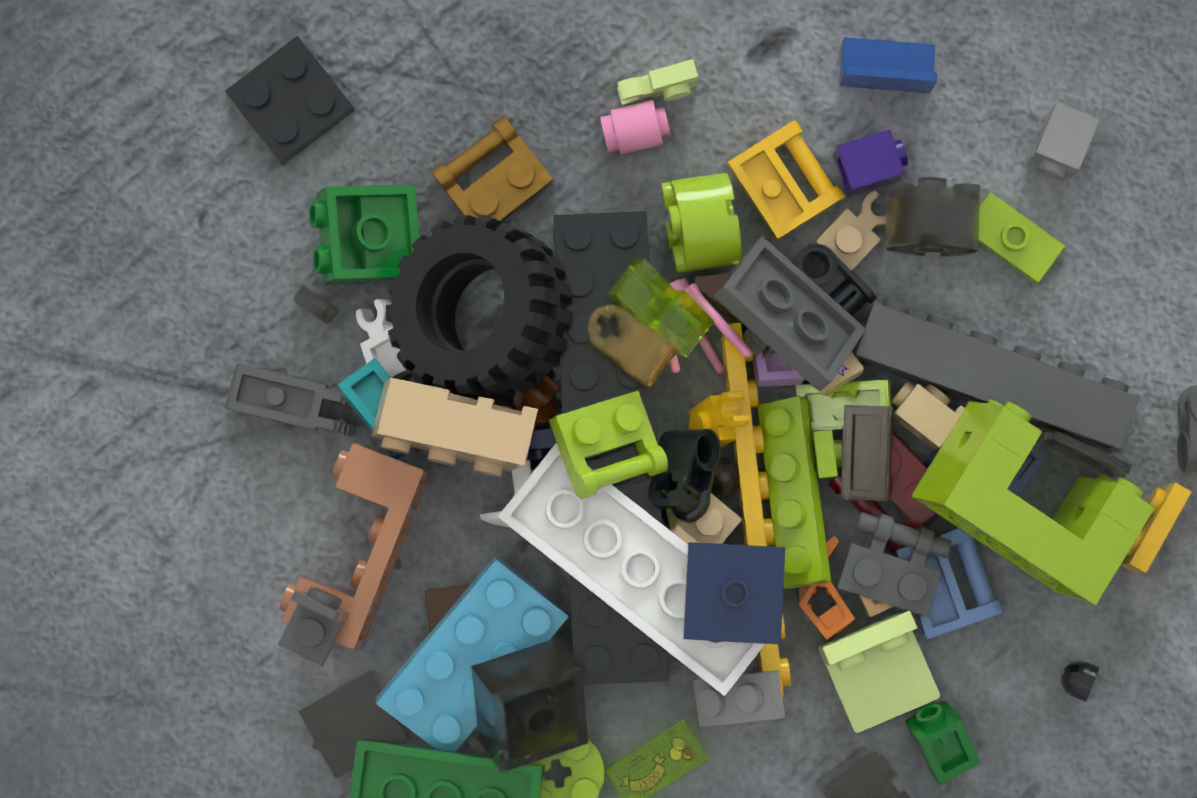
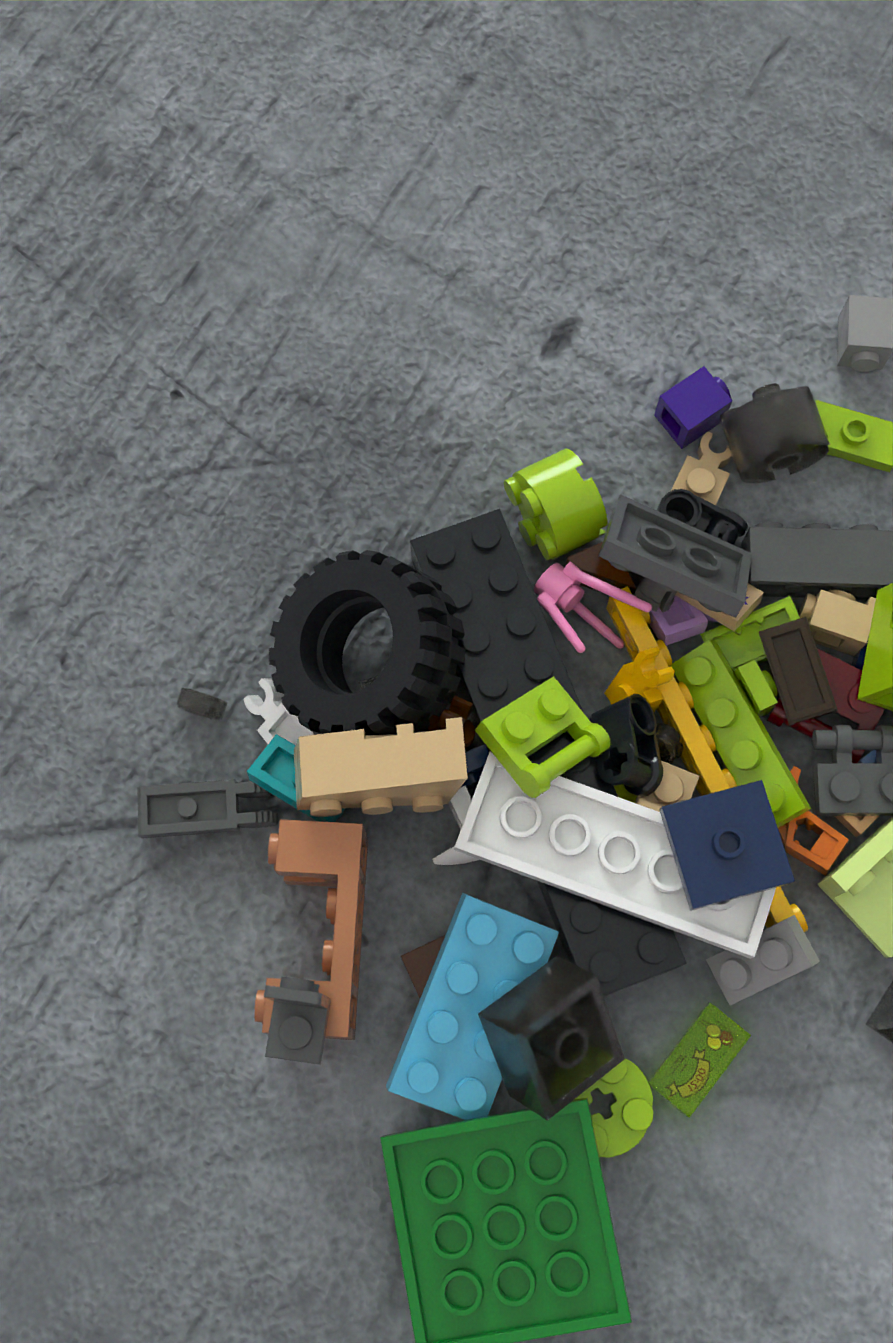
camera: 15 degrees left, 10 degrees down
(289, 100) = (118, 523): black plate -> none
(347, 716) = (360, 1117): clear smoke piece -> none
(363, 232) = (225, 619): green plate -> none
(504, 186) = (359, 528): pearl gold plate -> none
(635, 127) = (460, 443): bright pink brick -> none
(638, 350) = (534, 633): clear yellow piece -> none
(661, 307) = (548, 594): clear neon green slope -> none
(670, 81) = (475, 393): yellowish green plate -> none
(774, 189) = (612, 459): yellow plate -> none
(887, 65) = (677, 320): blue panel -> none

